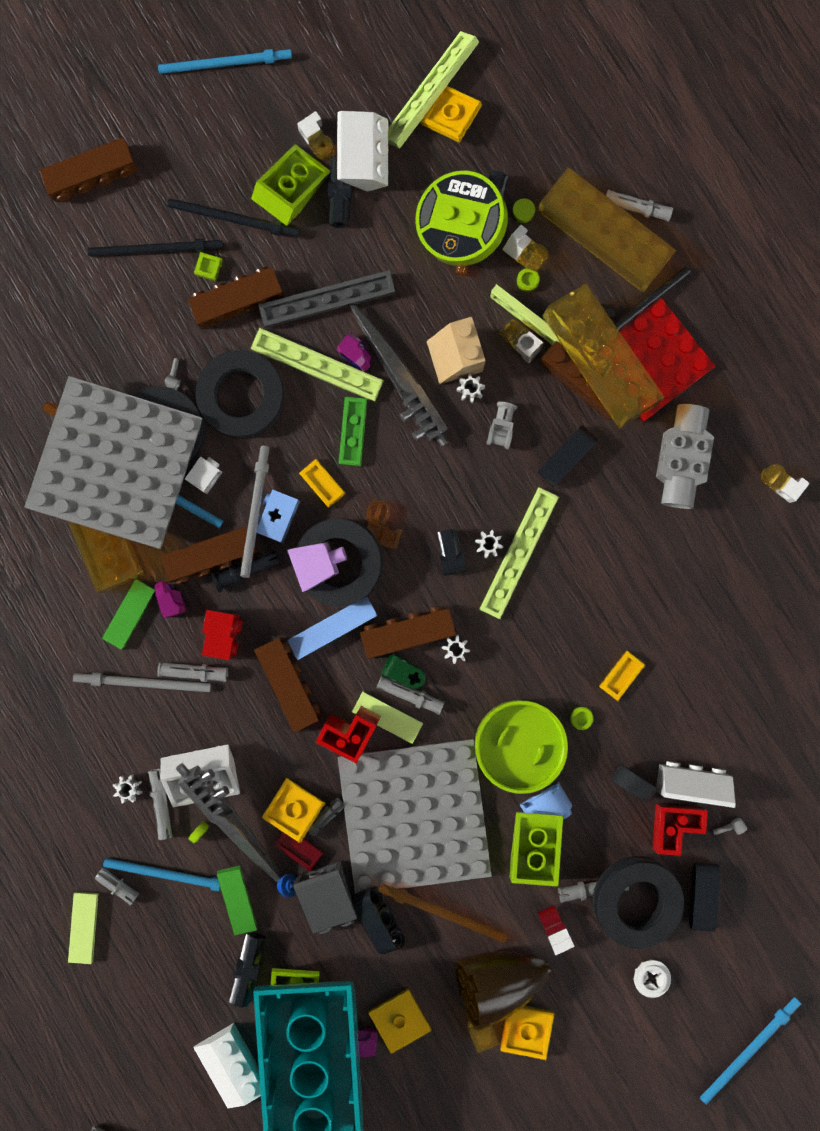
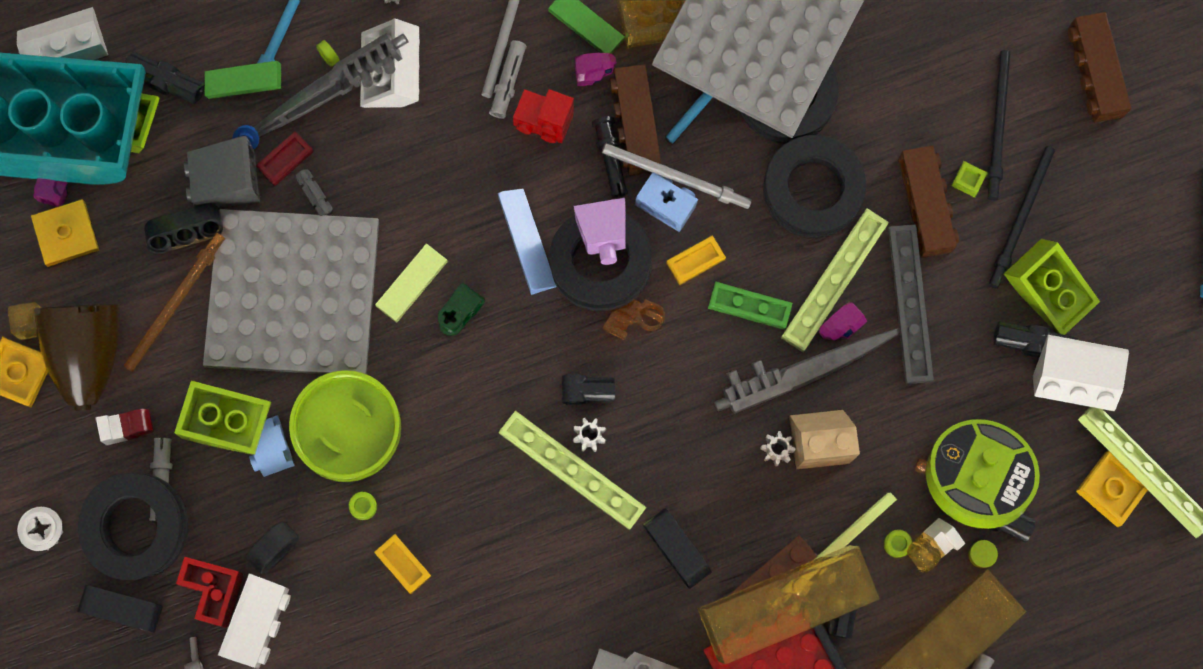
camera: 90 degrees right, 10 degrees down
(160, 805) = (364, 18): light grey pin -> none
(170, 380) = (843, 114): light grey hand -> none
(204, 474) = (729, 130): white brick -> none
(287, 684) = (472, 178): reddish brown brick -> none
(293, 810) = (328, 159): yellow plate -> none
(318, 142) = (1104, 324): leg -> none
(346, 738) = (397, 233): red brick -> none
(407, 633) = (503, 322): reddish brown brick -> none
(414, 696) = (425, 322): light grey pin -> none
(460, 644) = (470, 365): white gear -> none
(501, 430) = (726, 477): light grey connector -> none
(521, 340) = (825, 520): leg -> none

